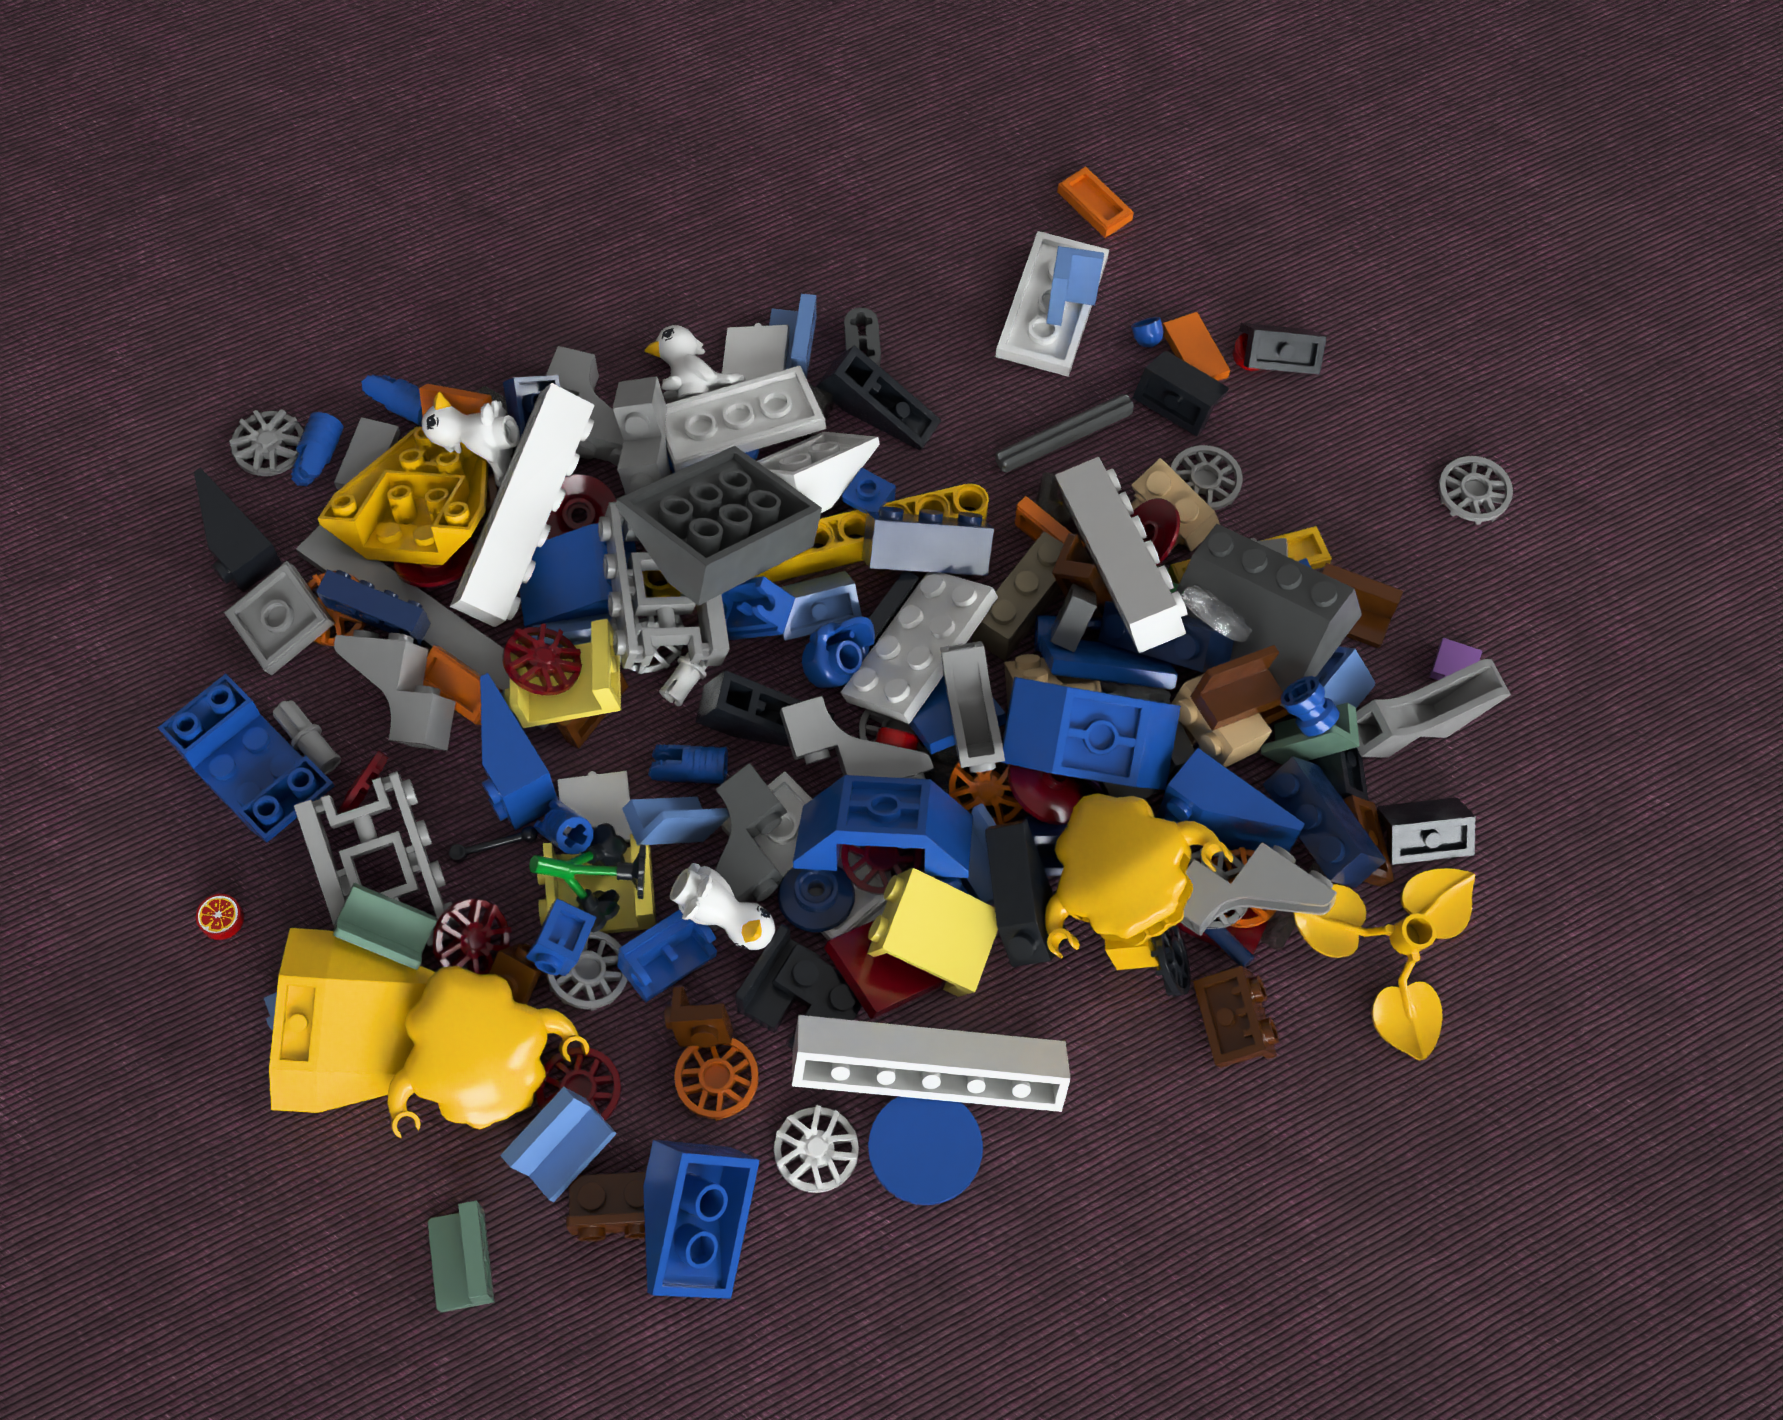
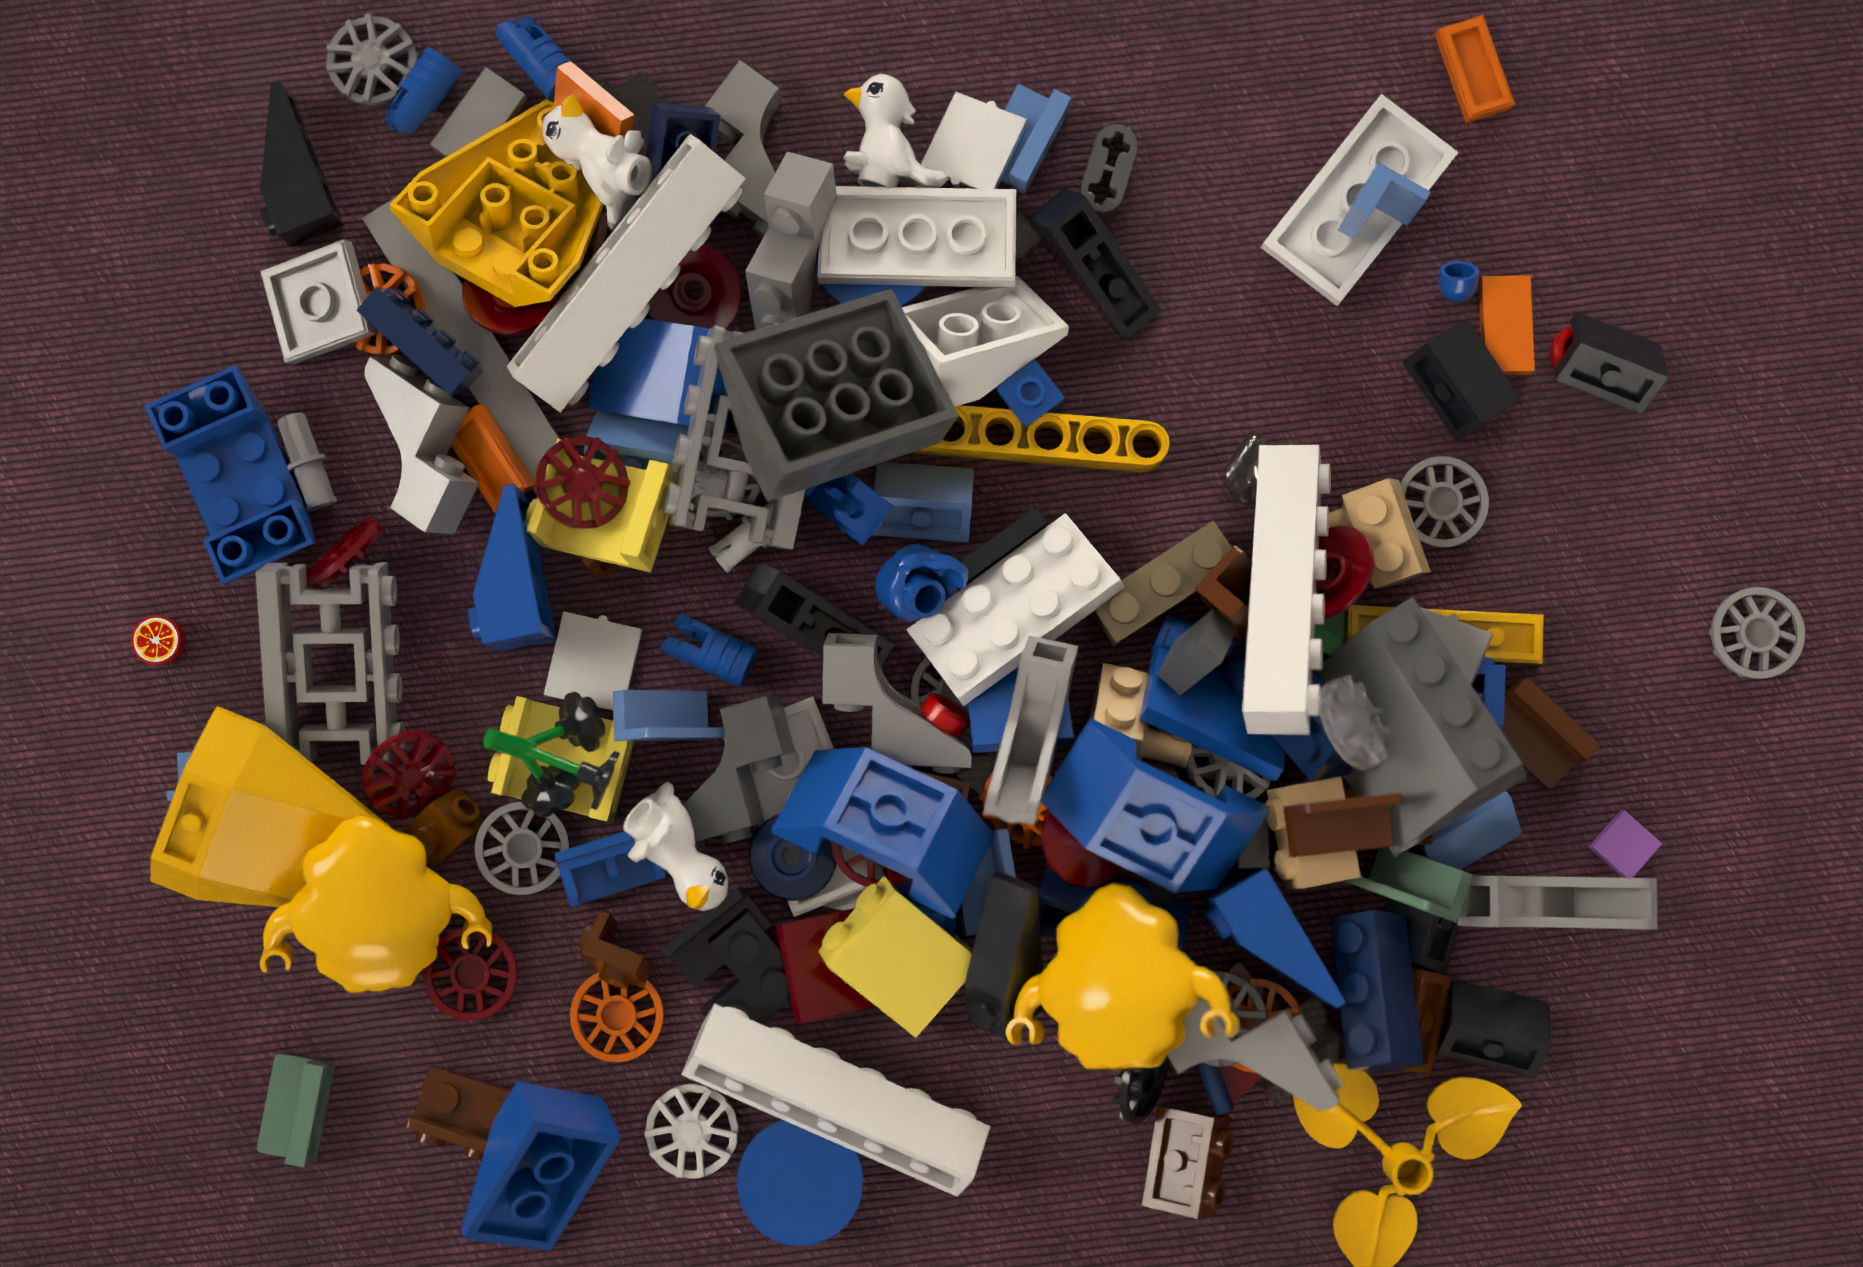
camera: 25 degrees right, 20 degrees up
(384, 926) = (313, 741): sand green panel -> none
(459, 853) = (431, 658): black hinge -> none
(555, 823) = (546, 686): blue hinge -> none
(559, 1143) = (429, 1033): medium blue panel -> none
(561, 938) = (499, 818): blue bracket -> none
(927, 542) = (1072, 485): brick -> none
(1035, 521) = (1222, 508): orange tile -> none
(1064, 433) = (1300, 382): dark grey axle -> none
(1312, 710) = (1413, 870): blue wheel -> none

